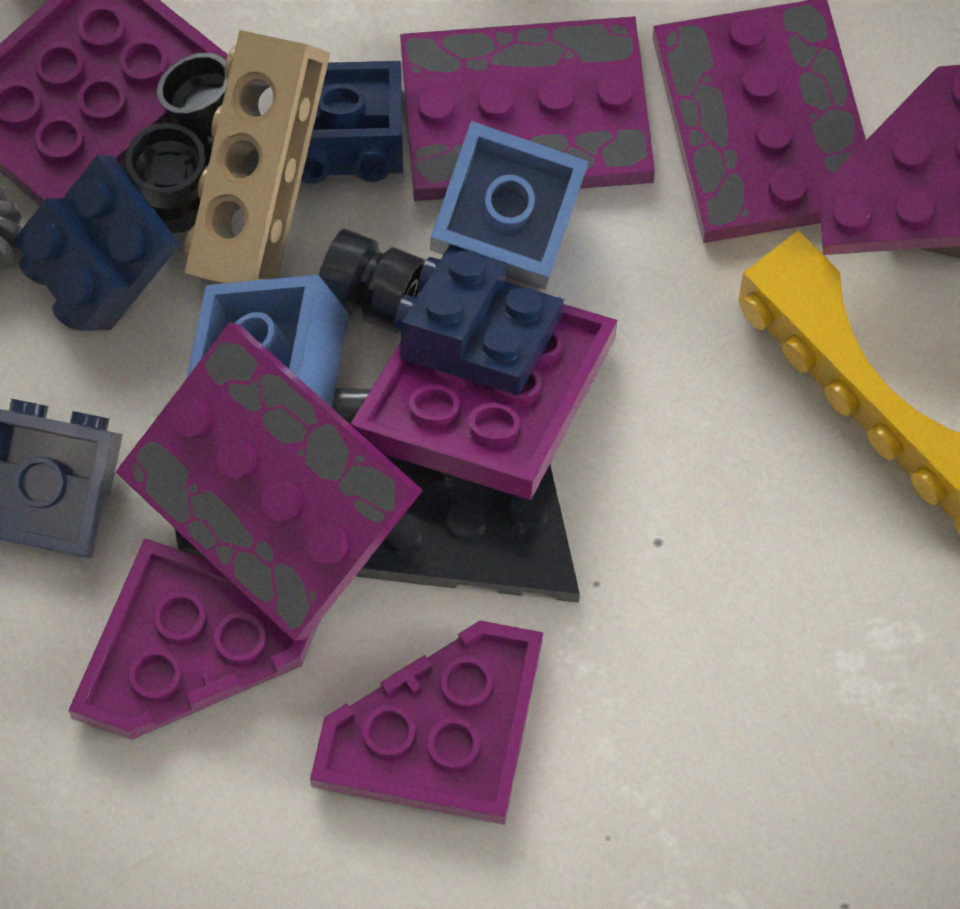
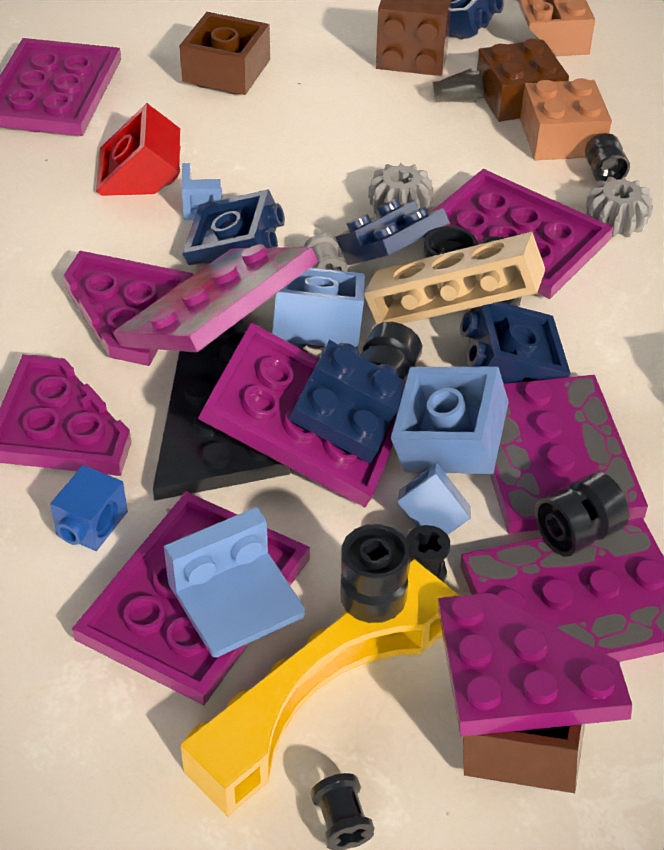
camera: 85 degrees right, 20 degrees down
(122, 351) = (326, 252): none -> light grey bush
(619, 671) = (89, 508): none -> blue brick
(623, 252) = (434, 501): none -> medium blue panel
(678, 79) = (581, 513): none -> black wheel
(710, 265) = (429, 548): none -> black bush
(757, 541) = (143, 621): none -> magenta plate
(788, 476) = (231, 583): none -> medium blue bracket
(802, 302) = (374, 573): none -> black wheel

